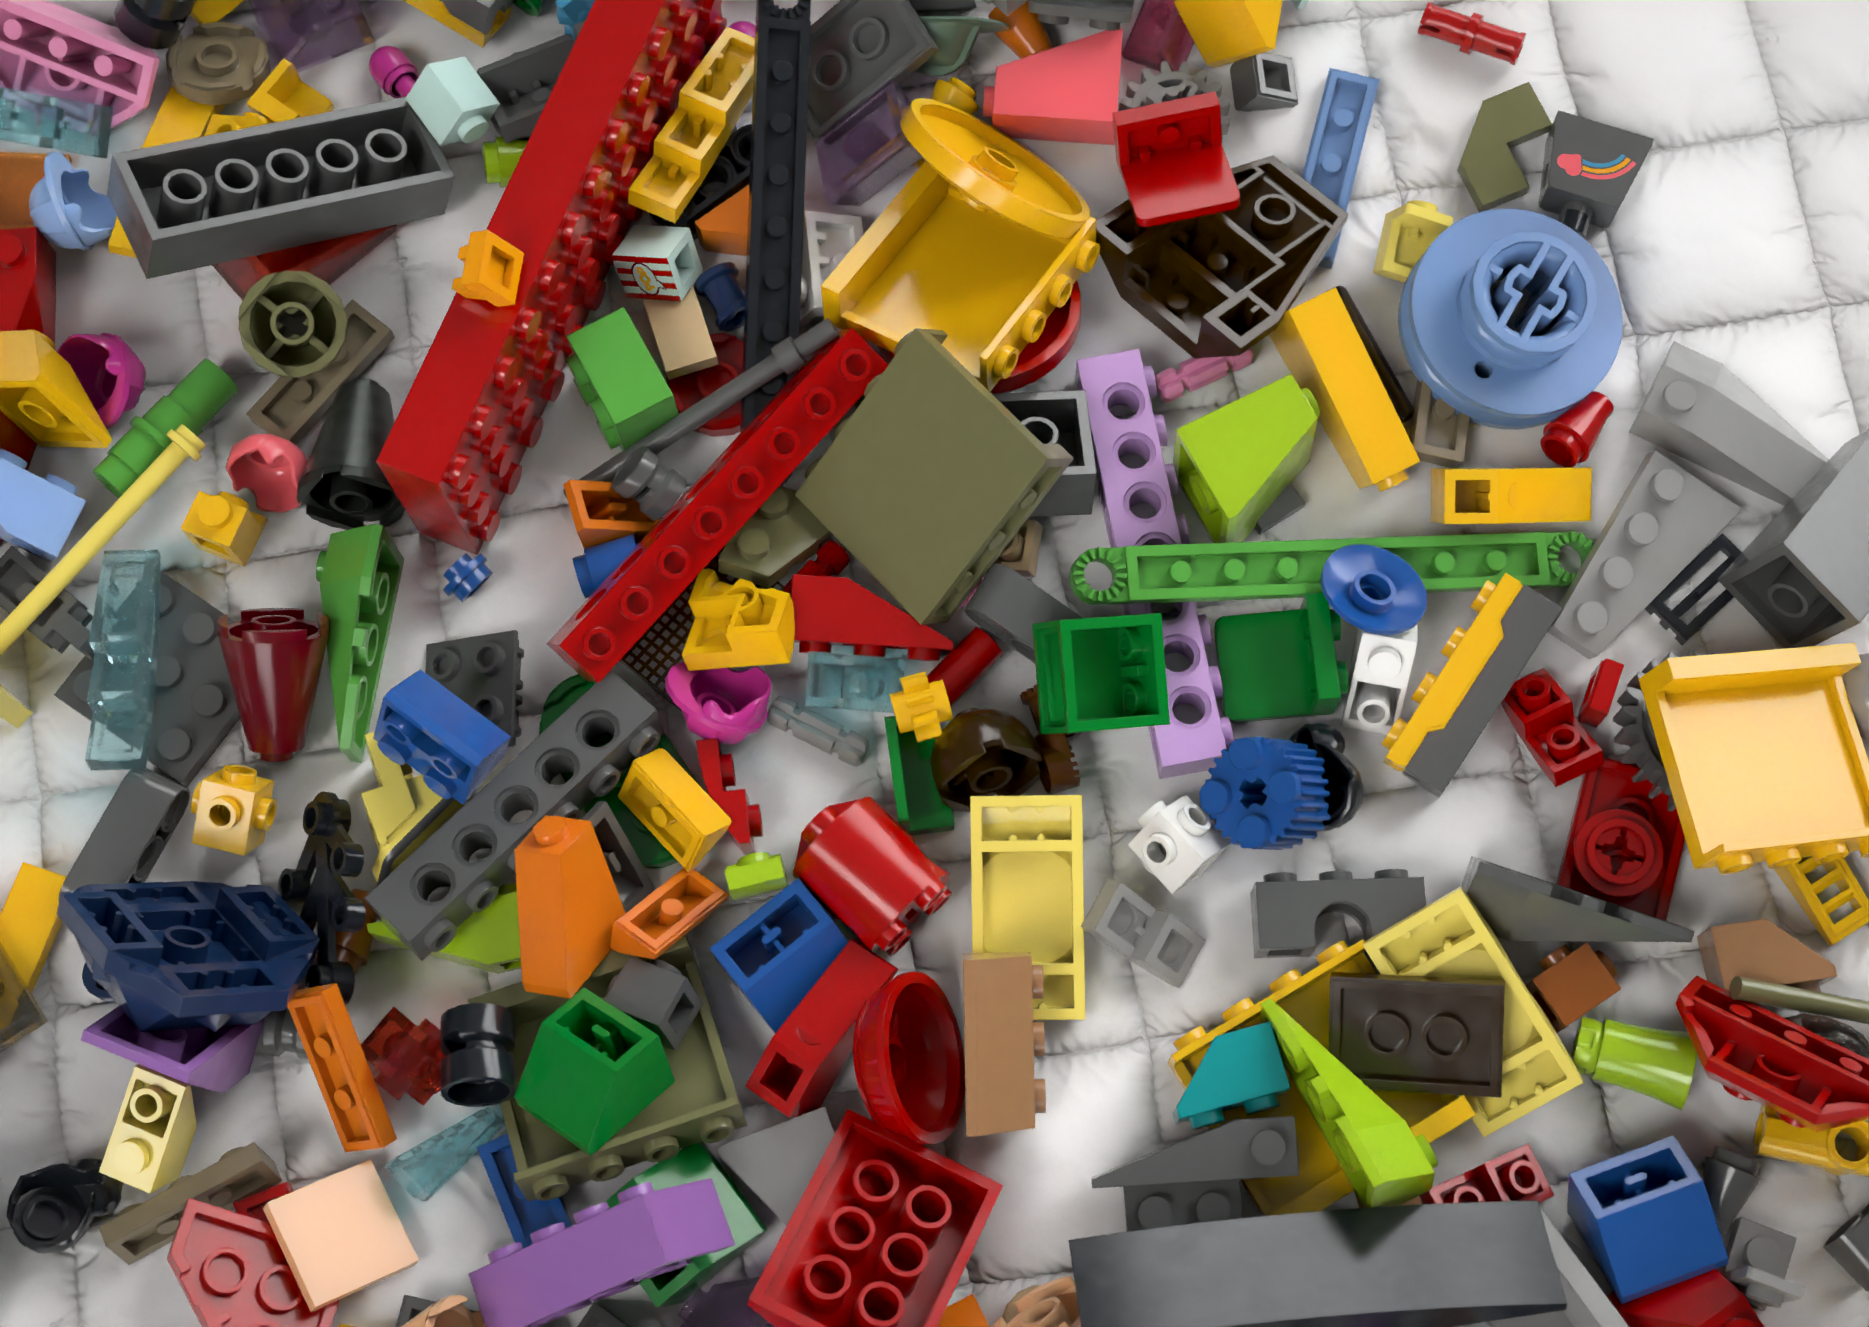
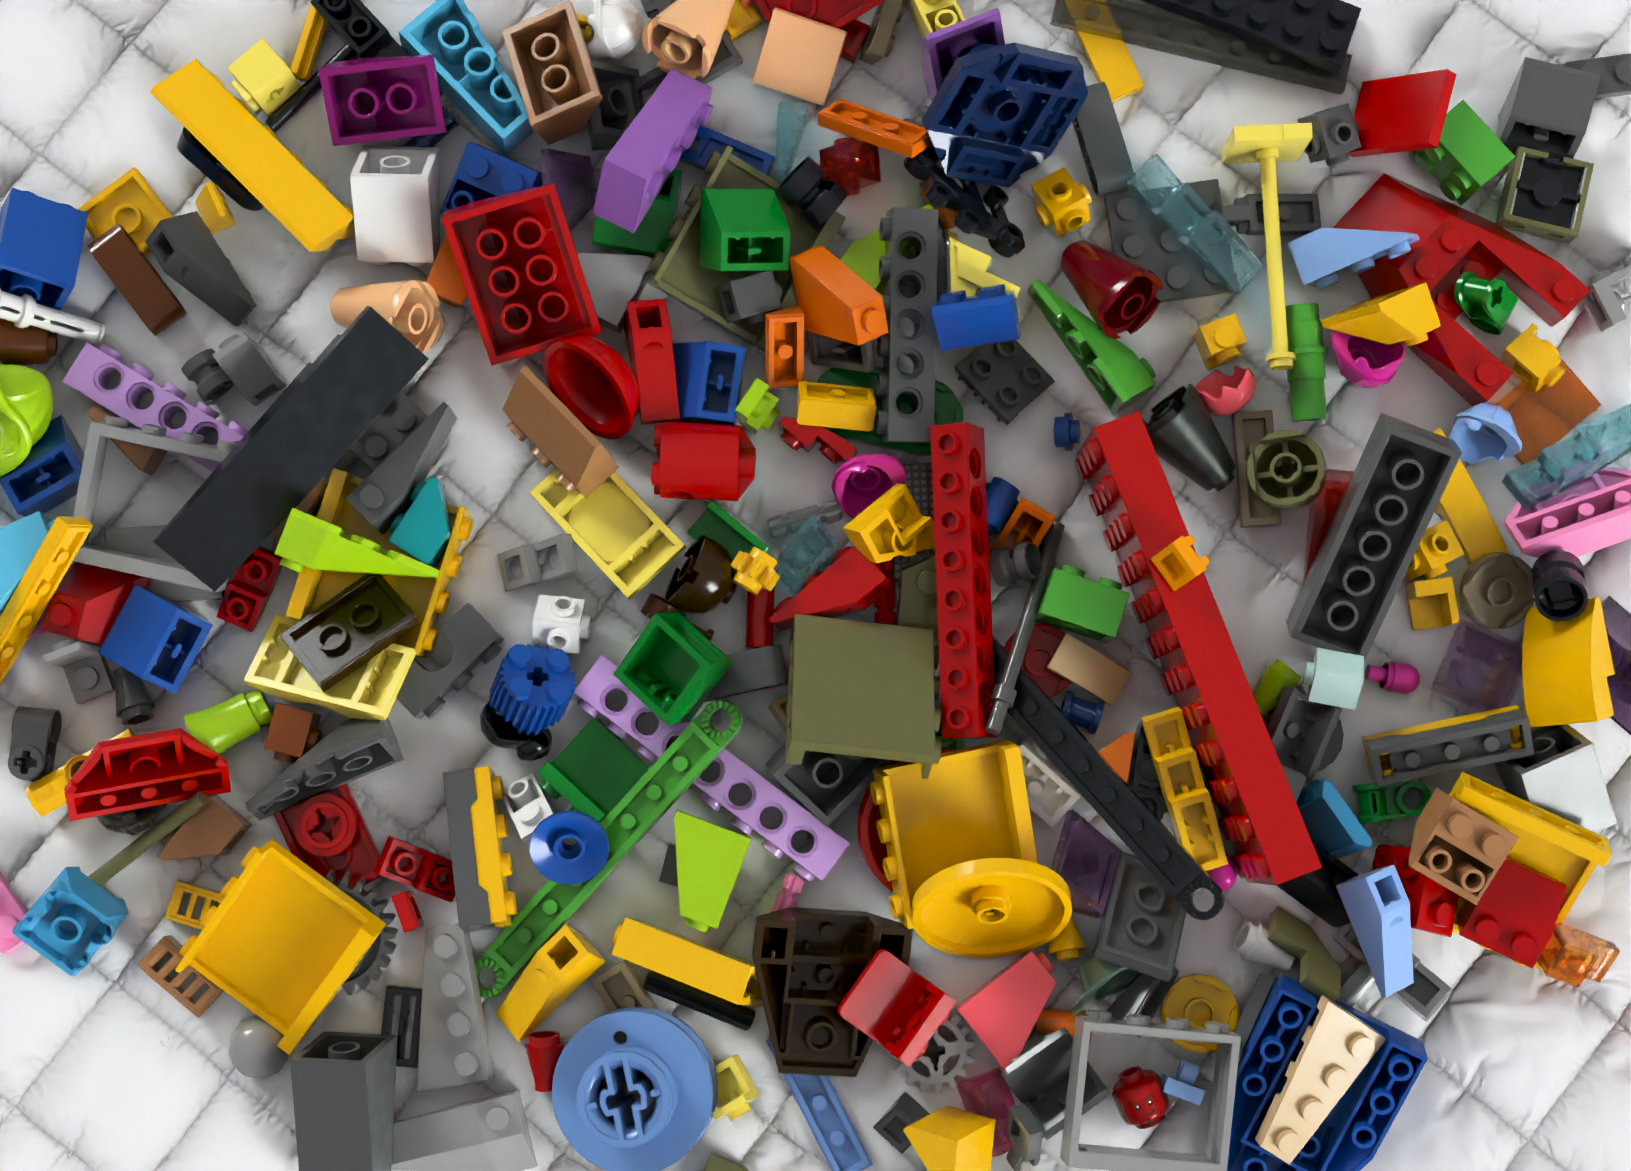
camera: 135 degrees right, 10 degrees up
(657, 262) = (1134, 693): light aqua brick -> none

